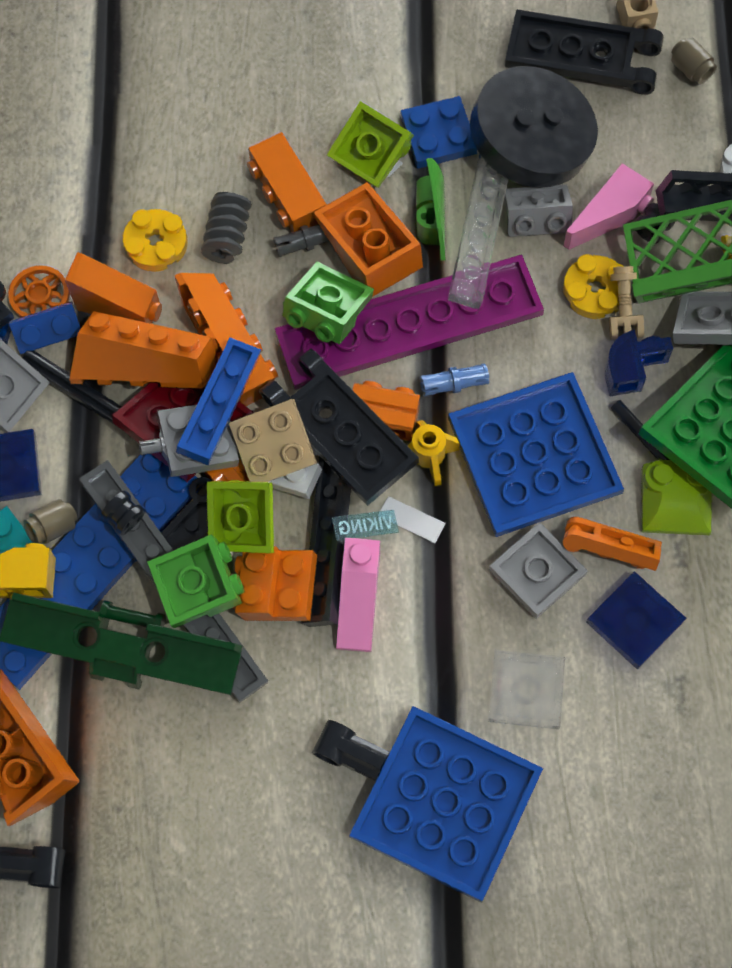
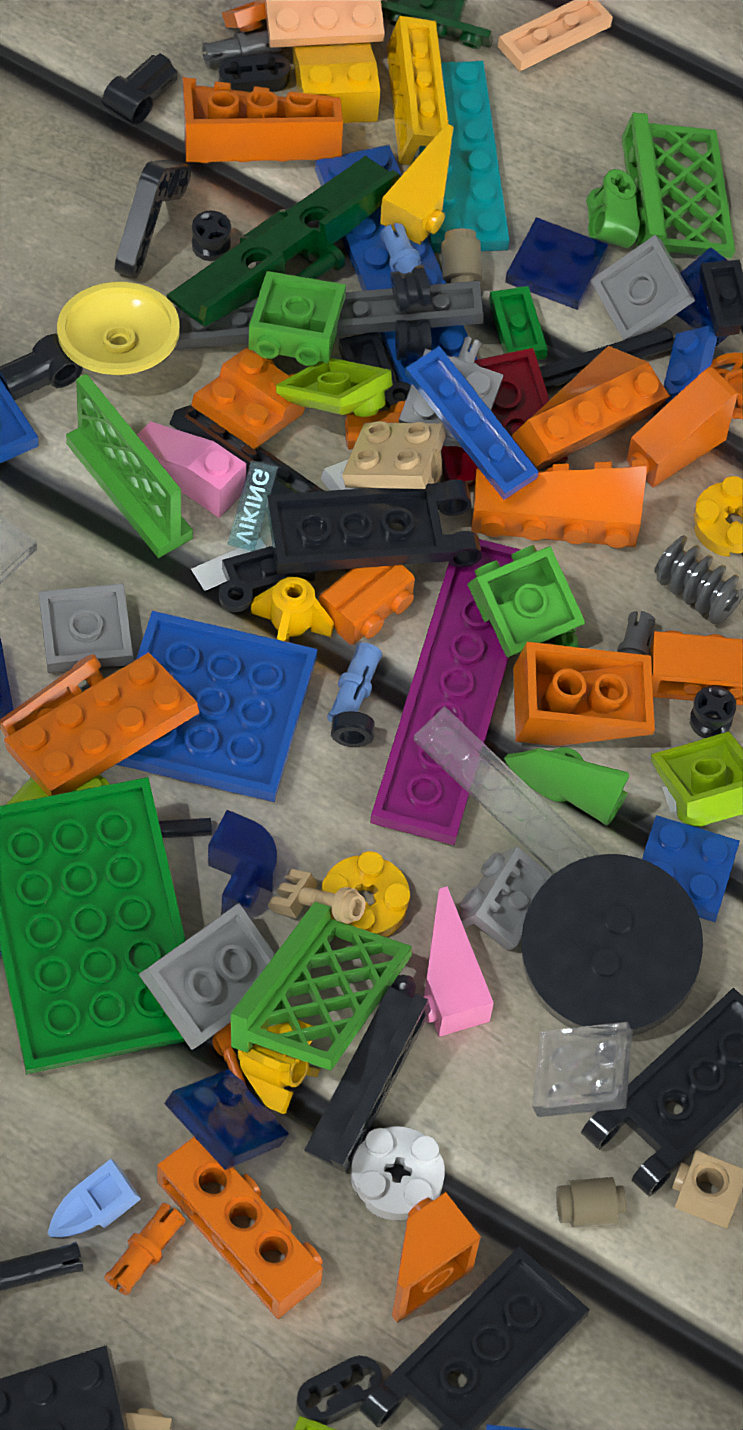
camera: 115 degrees right, 10 degrees down
(82, 455) = (517, 321): none -> green plate
(84, 551) = (402, 254): none -> medium blue pin
(138, 706) = (204, 228): none -> black wheel
(151, 757) = (158, 183): none -> black beam
(157, 498) = (412, 338): none -> black wheel
(261, 702) = (118, 328): none -> light yellow dish
(317, 162) = (713, 701): none -> black wheel
(402, 621) = (127, 471): none -> bright green fence
(420, 494) = (252, 575): none -> black hinge
(488, 354) = (352, 729): none -> black tile
(615, 495) = (101, 726): none -> orange plate
(622, 100) = (582, 1069): none -> clear plate

